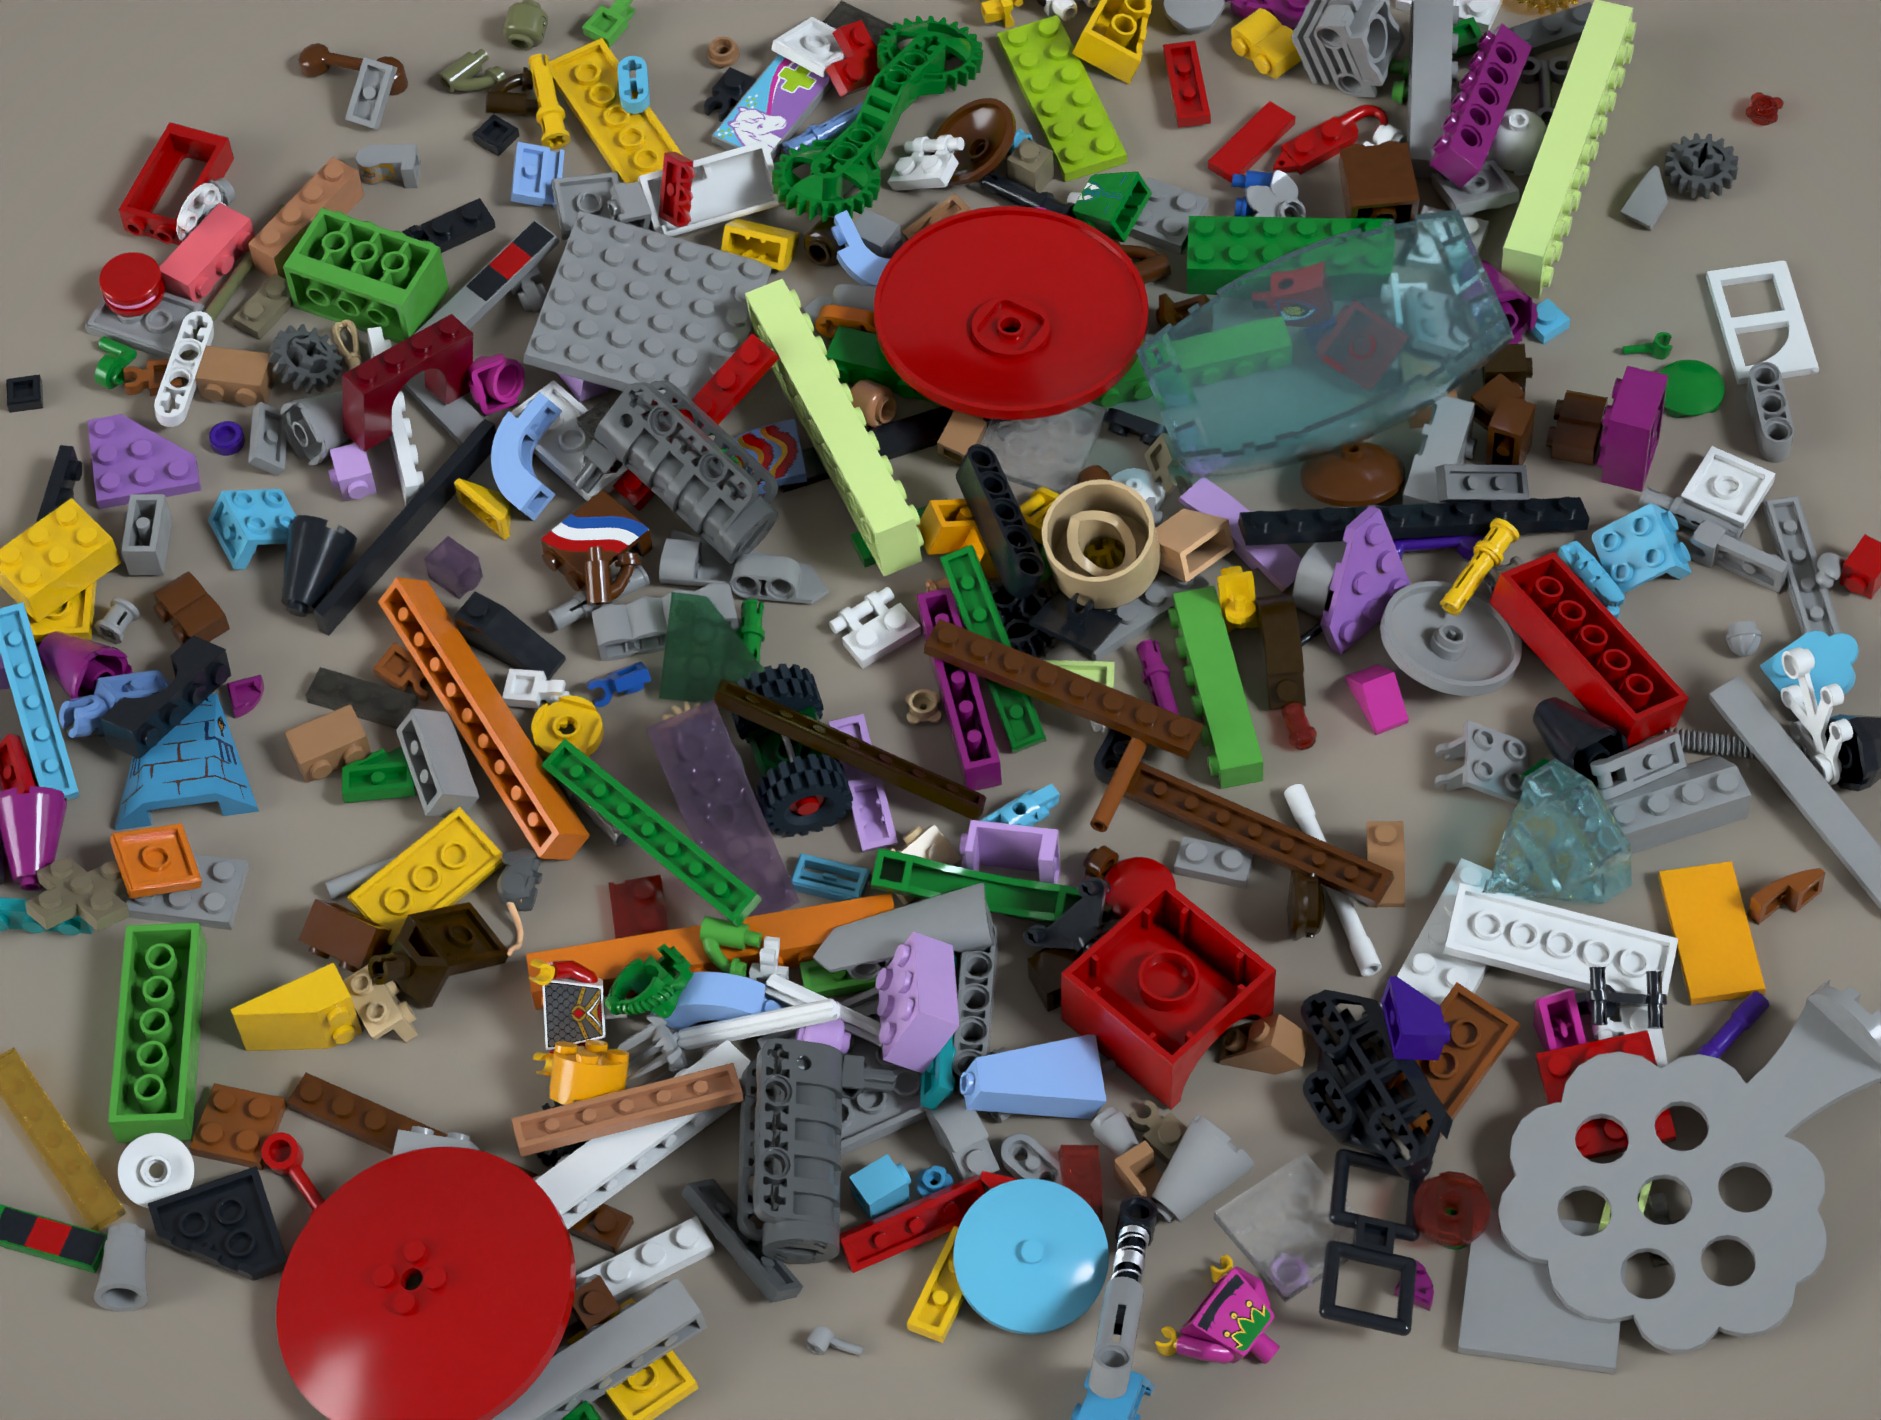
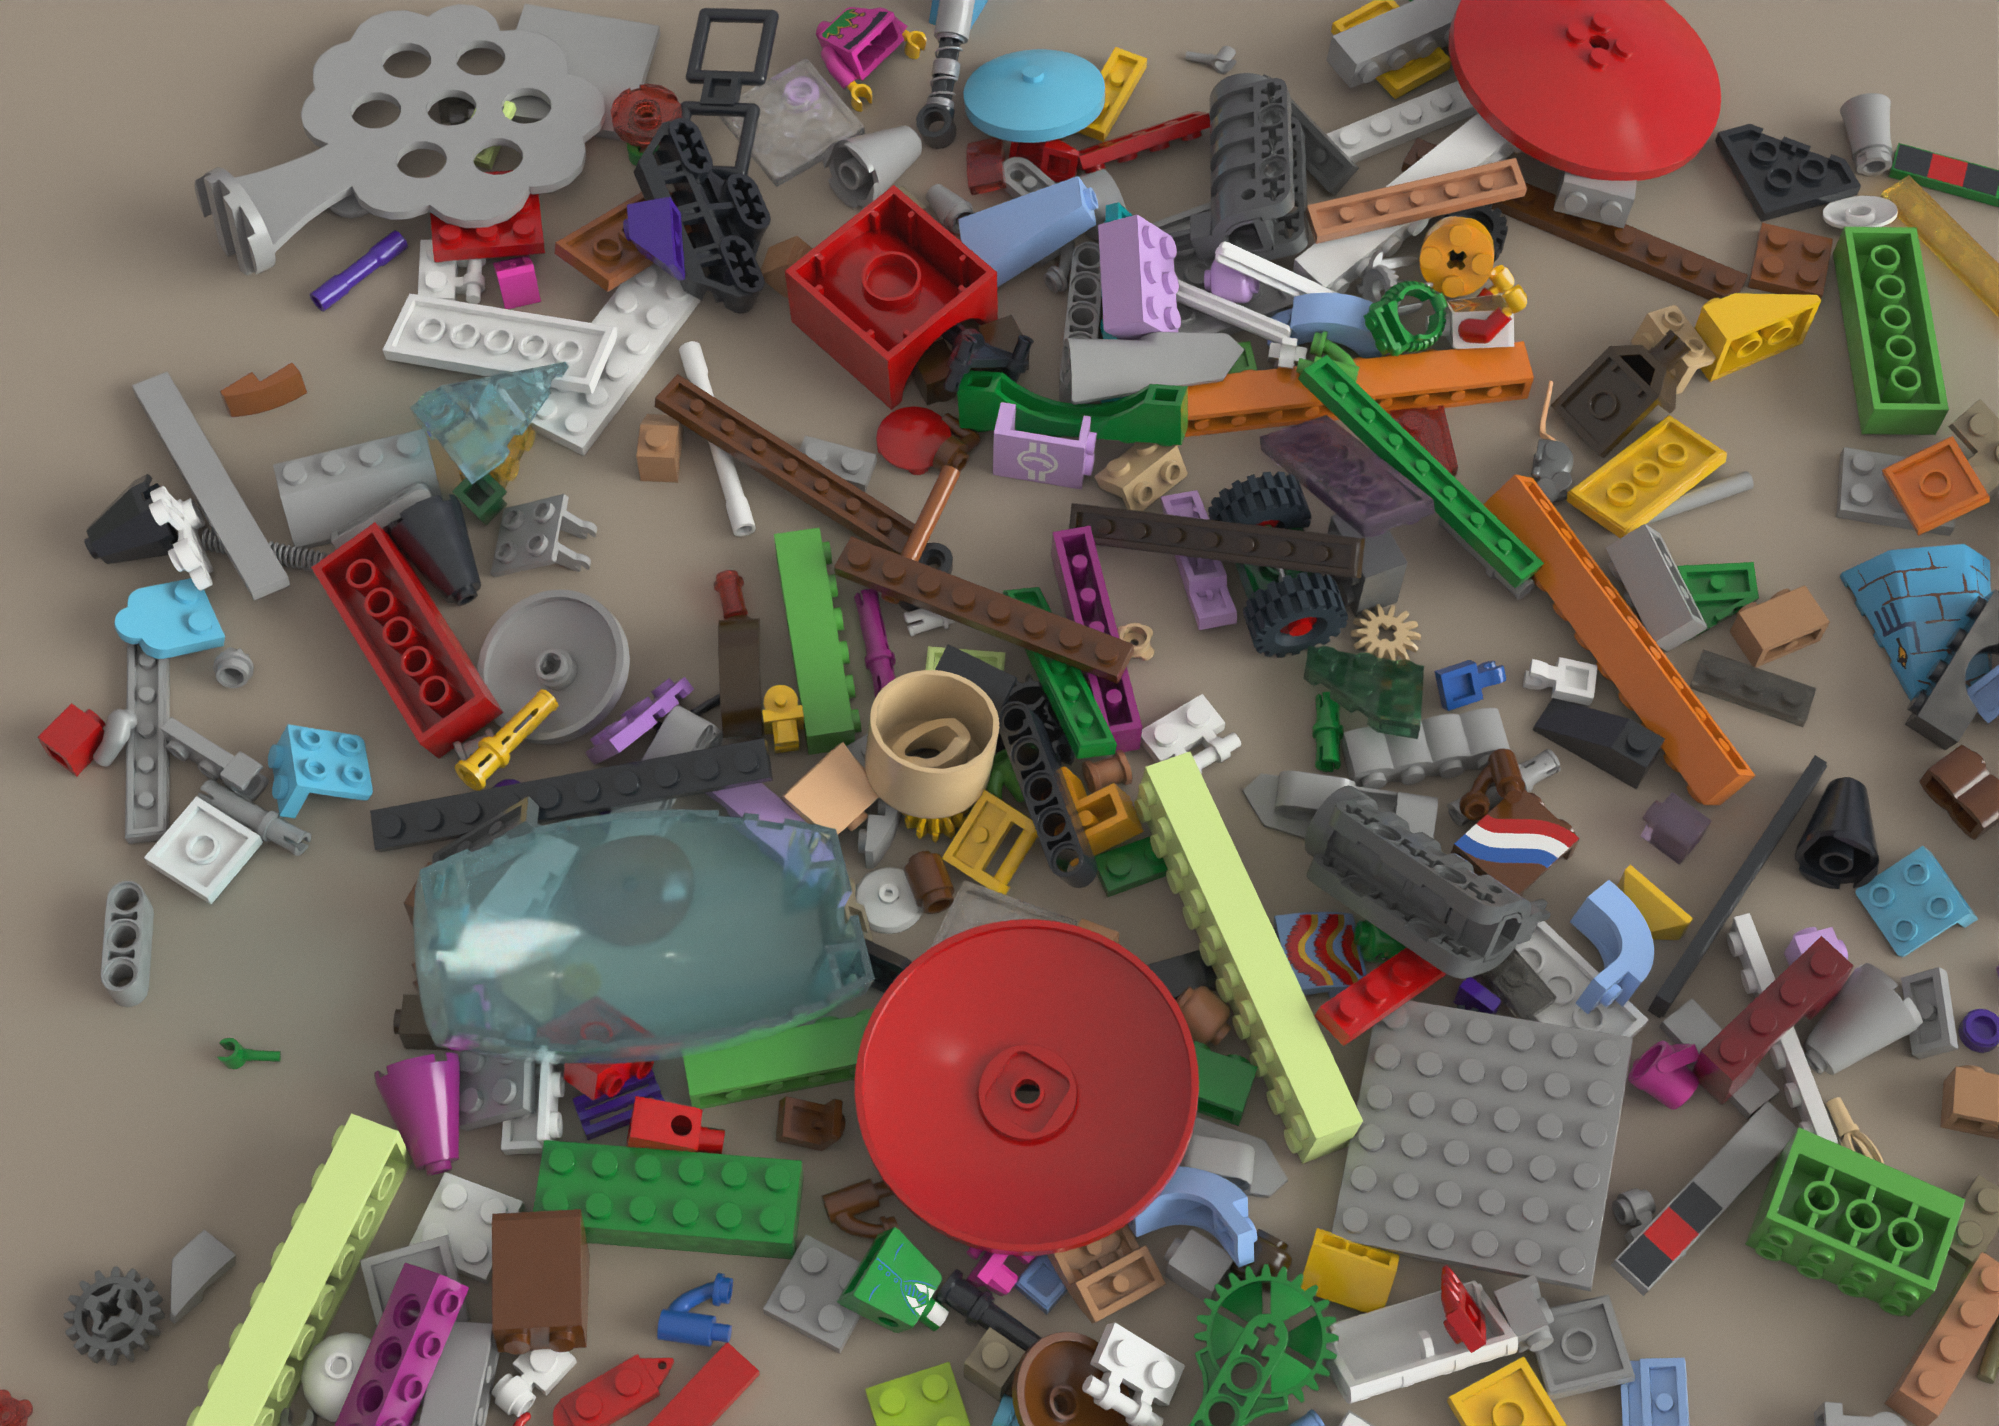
camera: 175 degrees right, 5 degrees up
(245, 694) = (1884, 701): magenta tile -> none
(285, 1157) = (1738, 226): red piece -> none
(305, 358) = (1895, 1101): dark grey gear -> none
(343, 935) = (1721, 415): reddish brown brick -> none
(400, 670) = (1722, 707): dark orange plate -> none
(455, 226) = (1758, 1329): black hinge -> none
(568, 710) = (1508, 616): yellow plate -> none
(593, 1302) = (1431, 70): reddish brown brick -> none
(826, 884) = (1227, 471): medium azure tile -> none
(845, 317) = (1232, 1126): orange beam -> none
(880, 1187) = (1173, 170): medium azure brick -> none
(936, 1173) = (1130, 183): dark azure plate -> none
(1027, 809) = (1035, 513): medium azure hinge -> none
(1137, 1171) = (930, 171): medium nougat panel -> none
(1277, 198) = (676, 1281): light grey plate -> none
(1305, 905) = (750, 388): dark brown hat -> none
(1378, 697) = (644, 631): dark pink slope -> none
(1423, 1288) = (685, 90): magenta tile -> none
(1550, 321) = (363, 1098): medium azure plate -> none
(1577, 427) = (356, 936): reddish brown brick -> none
(1592, 575) = (383, 745): medium azure hinge -> none
(1603, 1001) = (458, 272): black axle -> none
(1632, 428) = (293, 885): magenta brick -> none
(1692, 388) = (213, 993): green dish -> none
(1711, 933) = (347, 370): light orange tile -> none
(1797, 354) = (71, 1036): white window -> none

